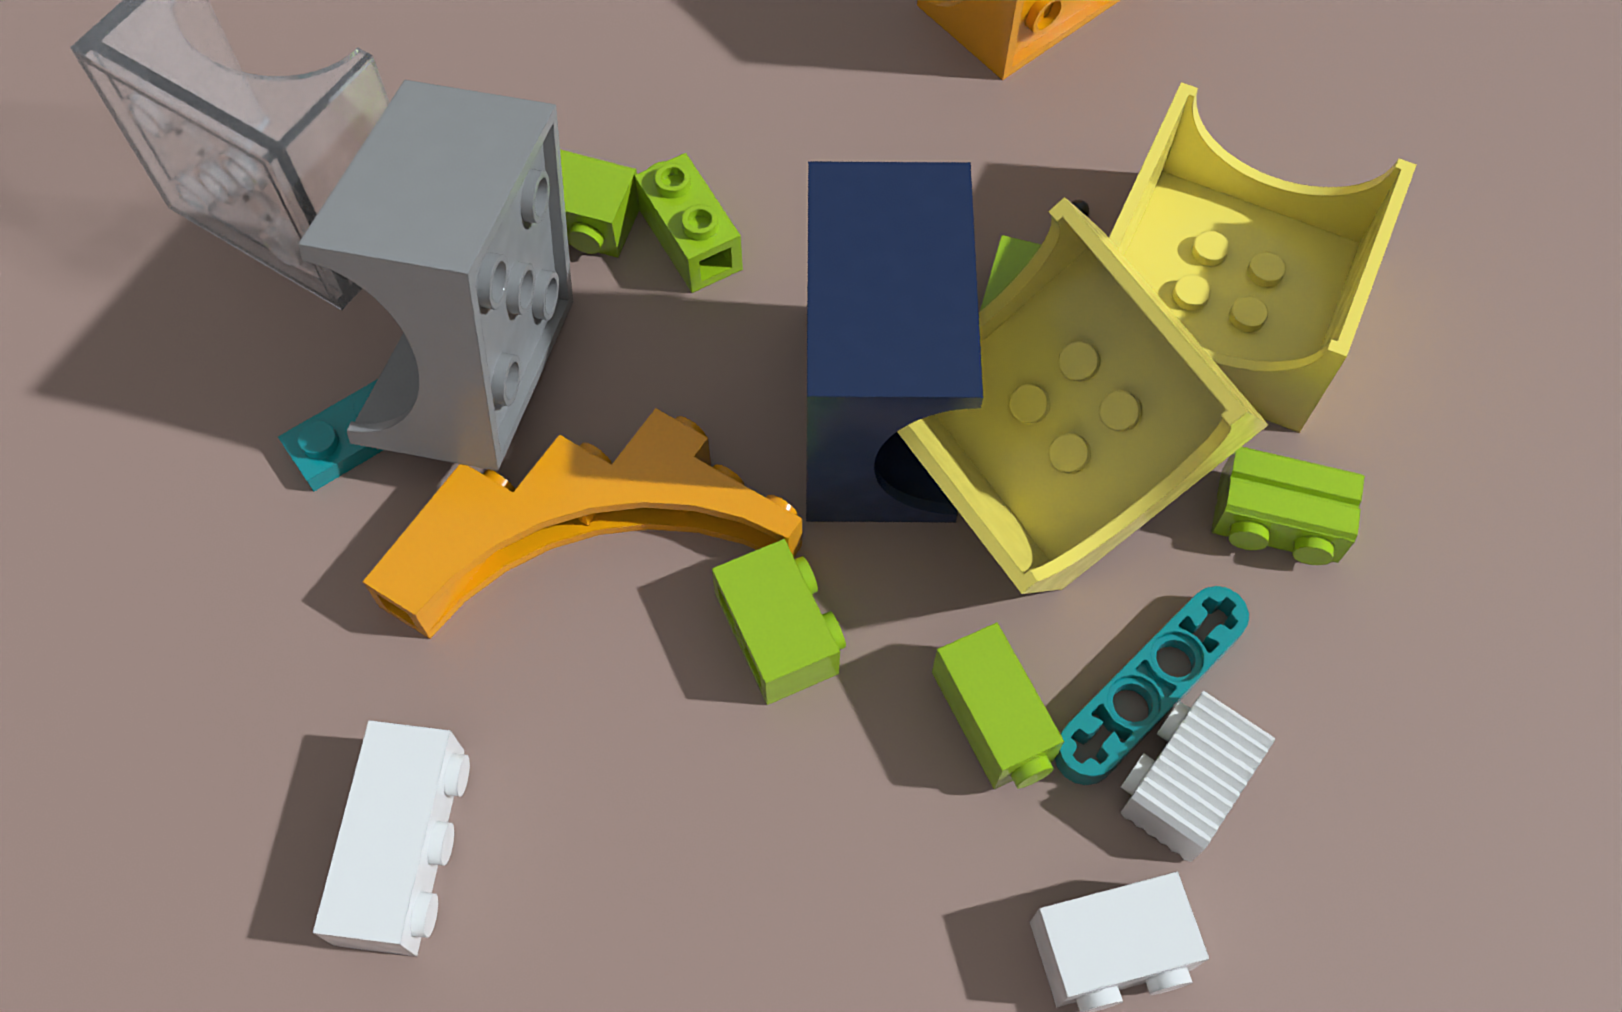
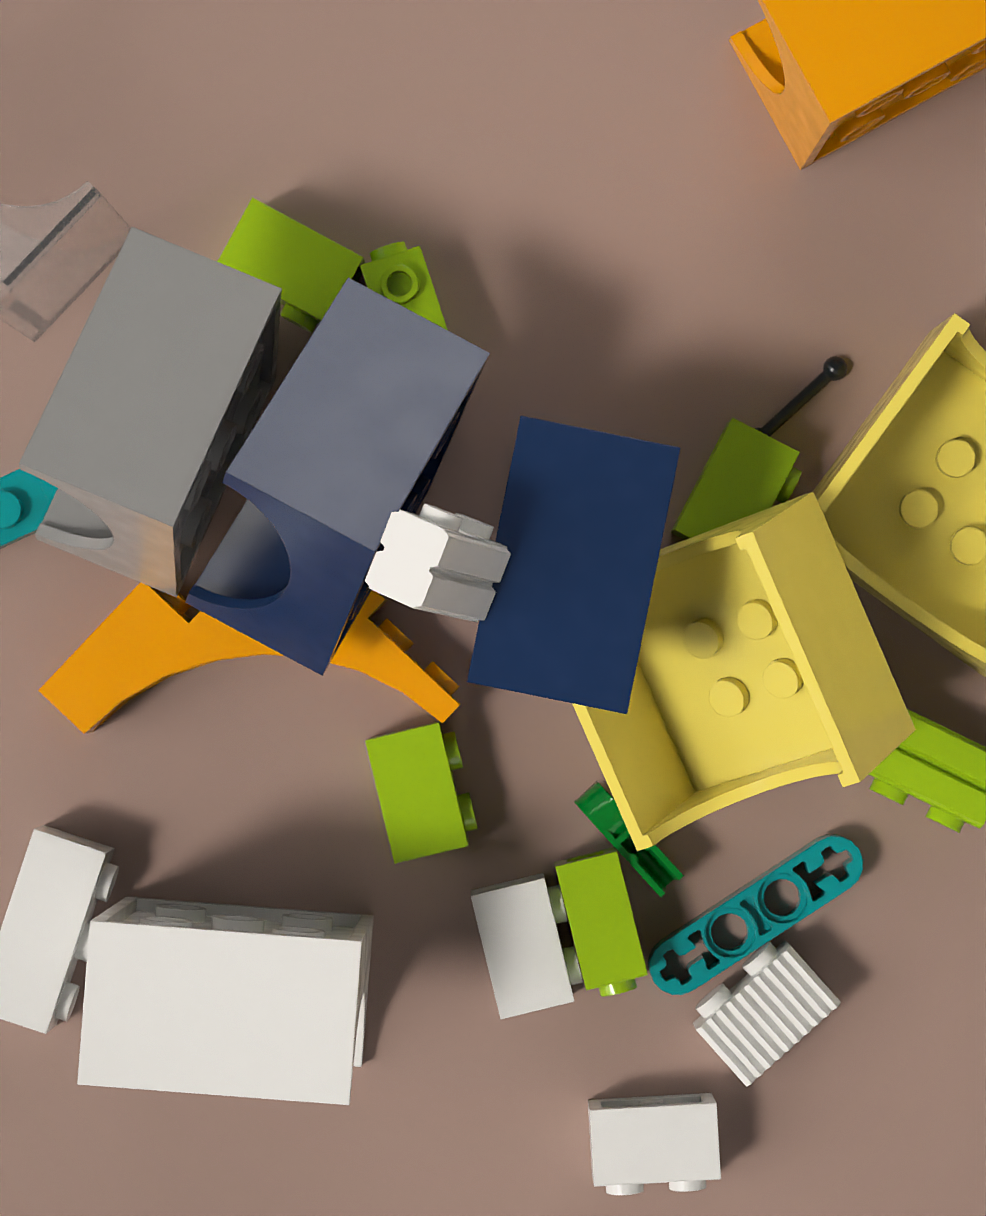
camera: 15 degrees right, 25 degrees up
(595, 821) = (225, 1000): none -> white container
(666, 238) = (328, 464): none -> container
(753, 265) = (439, 563): none -> white brick
(922, 754) = (524, 946): none -> white brick
(975, 605) = (648, 862): none -> green piece

